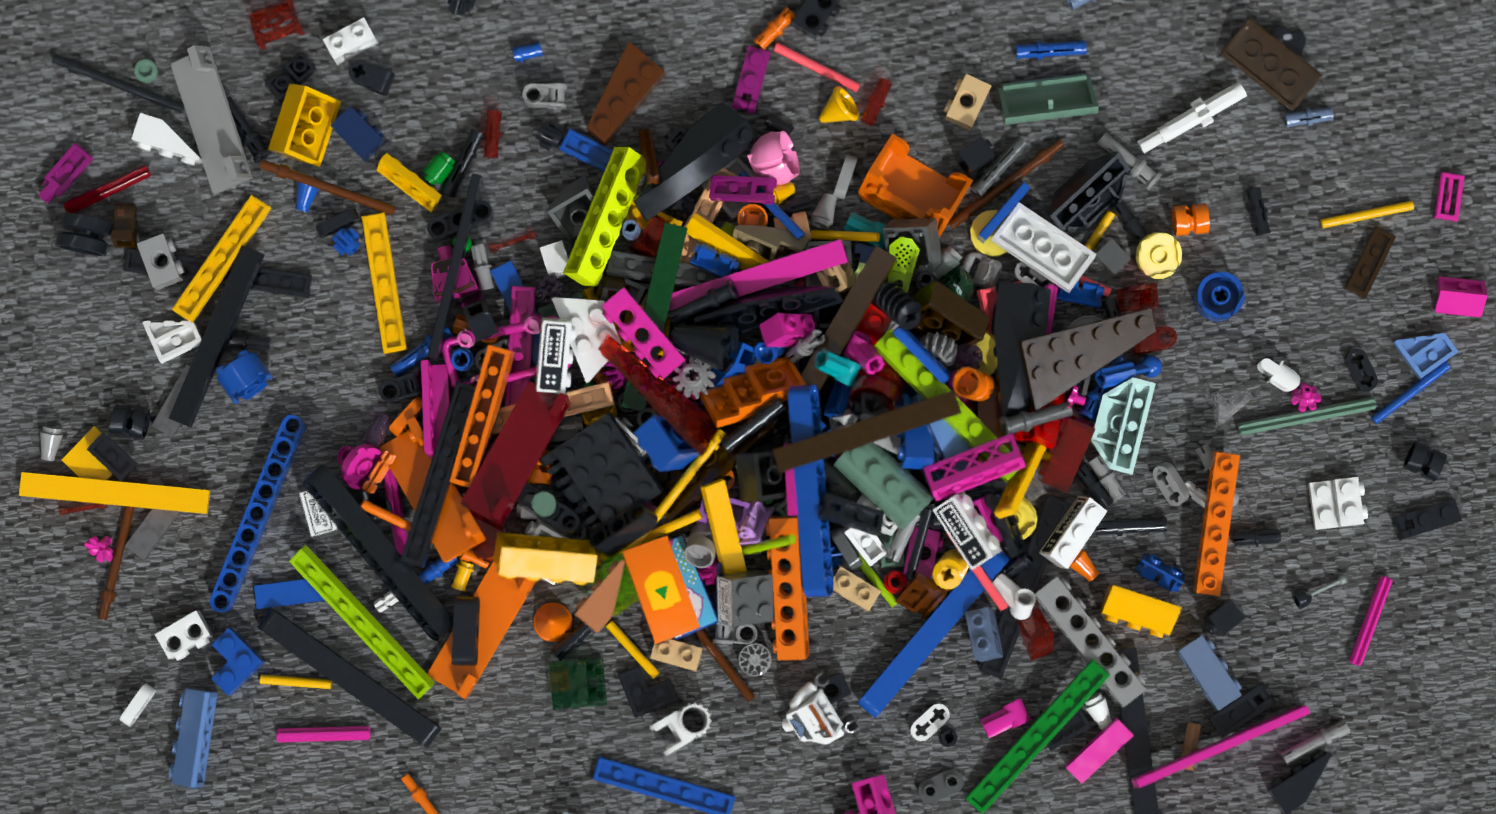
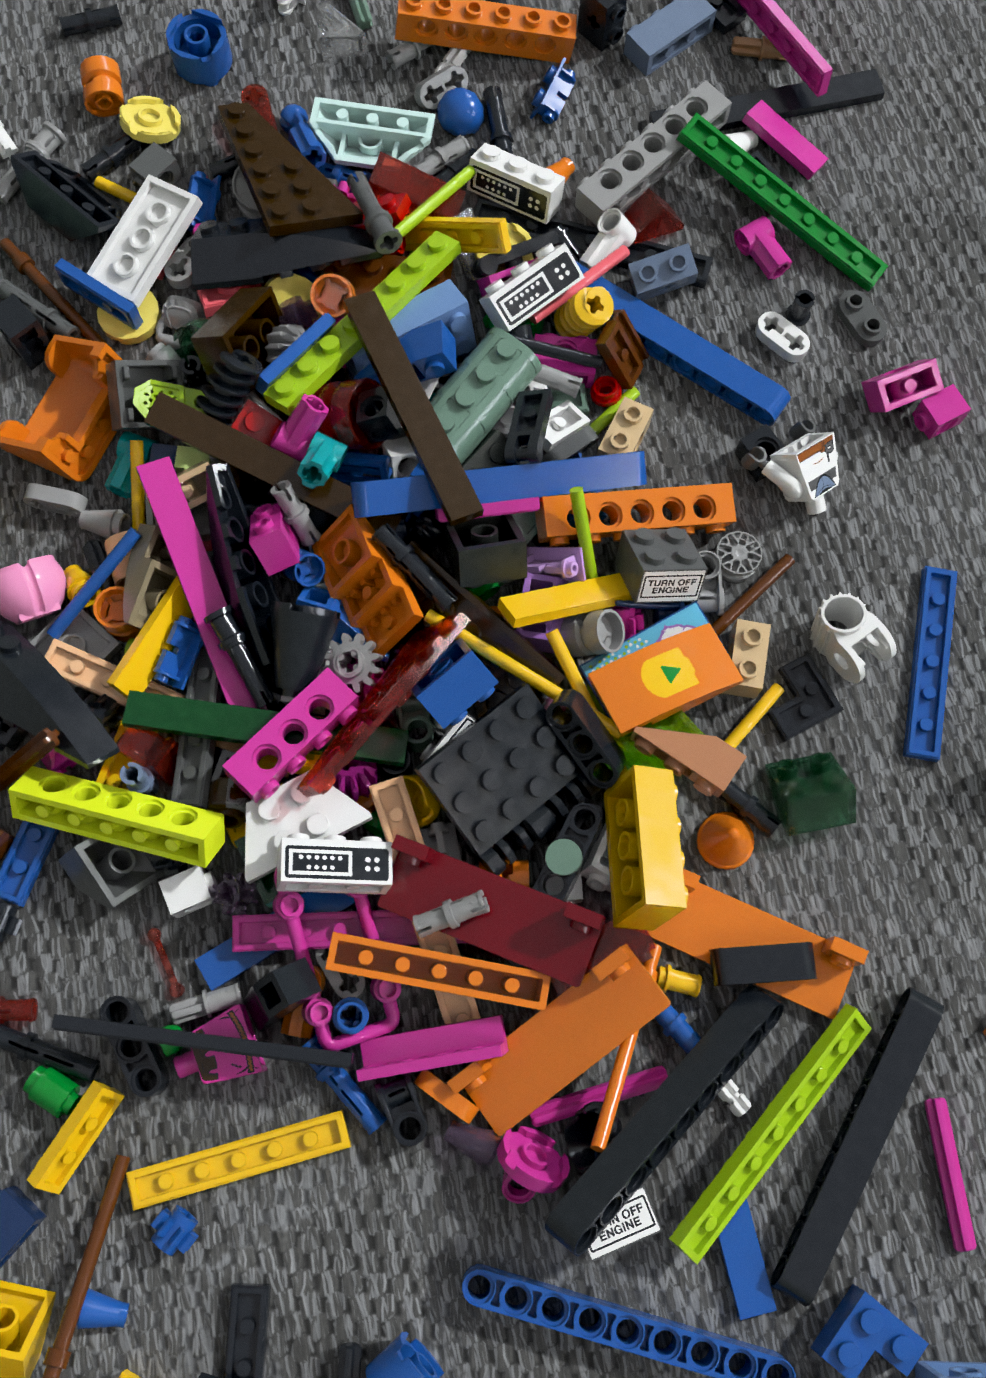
camera: 100 degrees left, 10 degrees down
(295, 681) = (877, 1232): yellow bar -> none
(337, 222) = (146, 1254): black beam -> none
(378, 471) = (538, 1131): orange axle -> none
(438, 478) = (536, 1028): black tile -> none
(515, 427) = (451, 914): none -> light grey pin
(742, 189) = (71, 622): magenta plate -> none
(979, 473) = (457, 269): dark pink fence -> none
(1051, 466) = (435, 200): none -> lime bar
(1138, 298) = (205, 132): clear red slope -> none
(1139, 611) = (605, 103): yellow slope -> none
(1146, 497) = (460, 112): none -> blue hair

